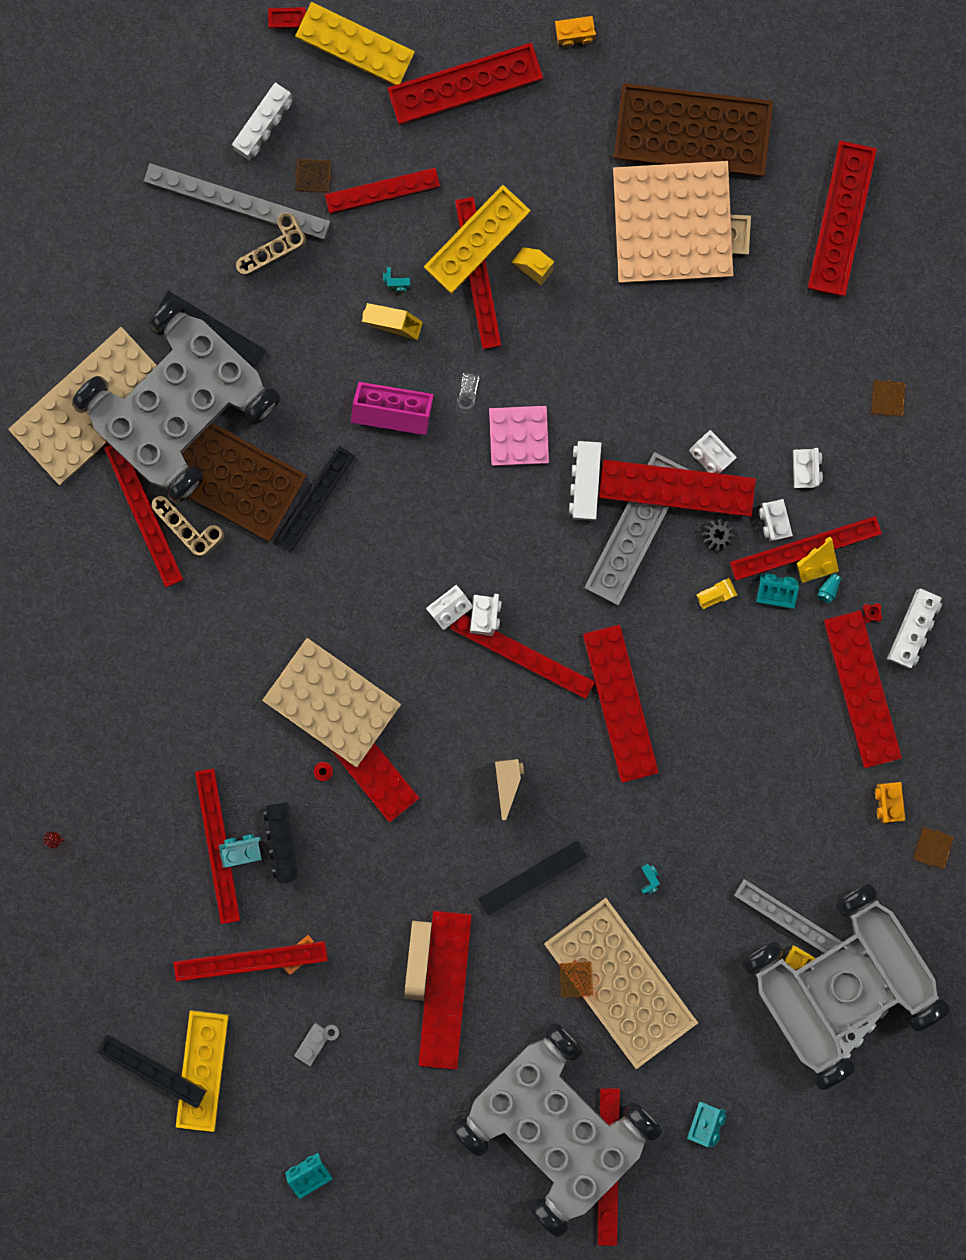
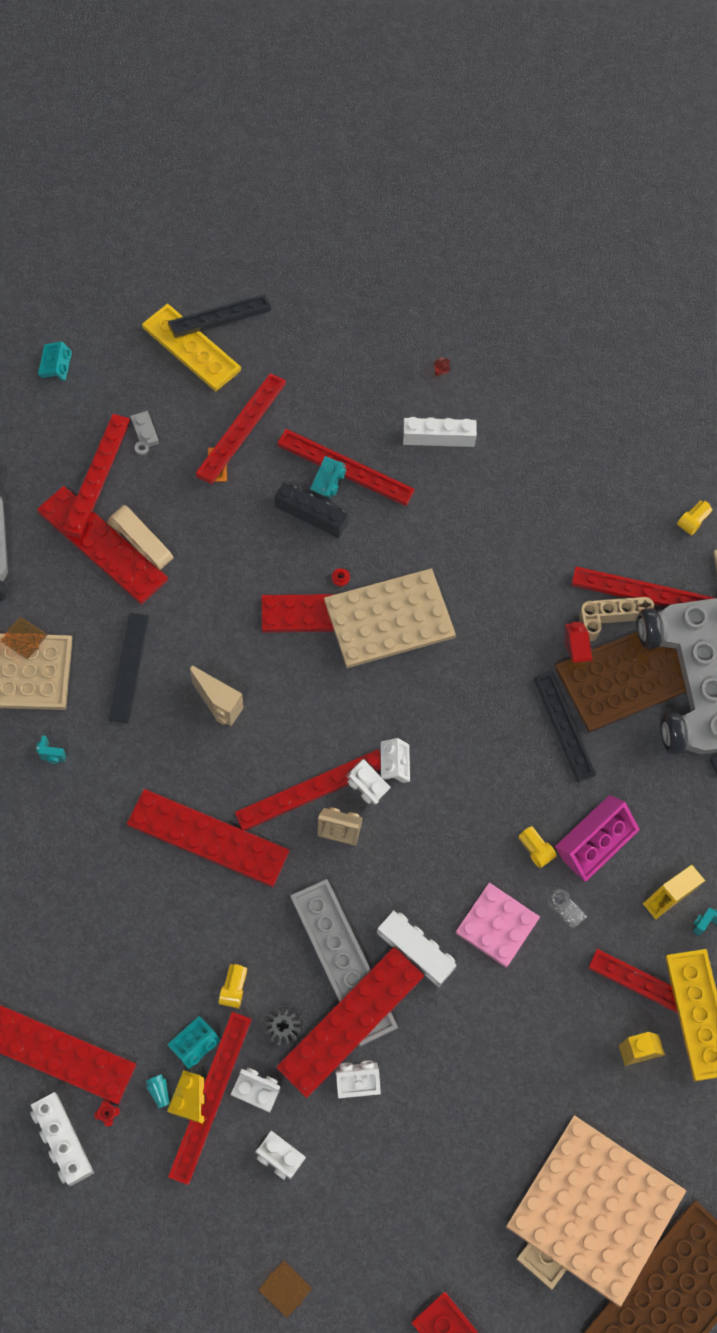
camera: 120 degrees right, 20 degrees down
(42, 521) = (692, 520): none -> yellow piece
(122, 791) = (439, 432): none -> white brick
(238, 535) = (577, 642): none -> red slope
(388, 1045) = (96, 476): none -> red plate
(436, 444) = (540, 852): none -> yellow piece
(535, 608) = (339, 826): none -> tan slope

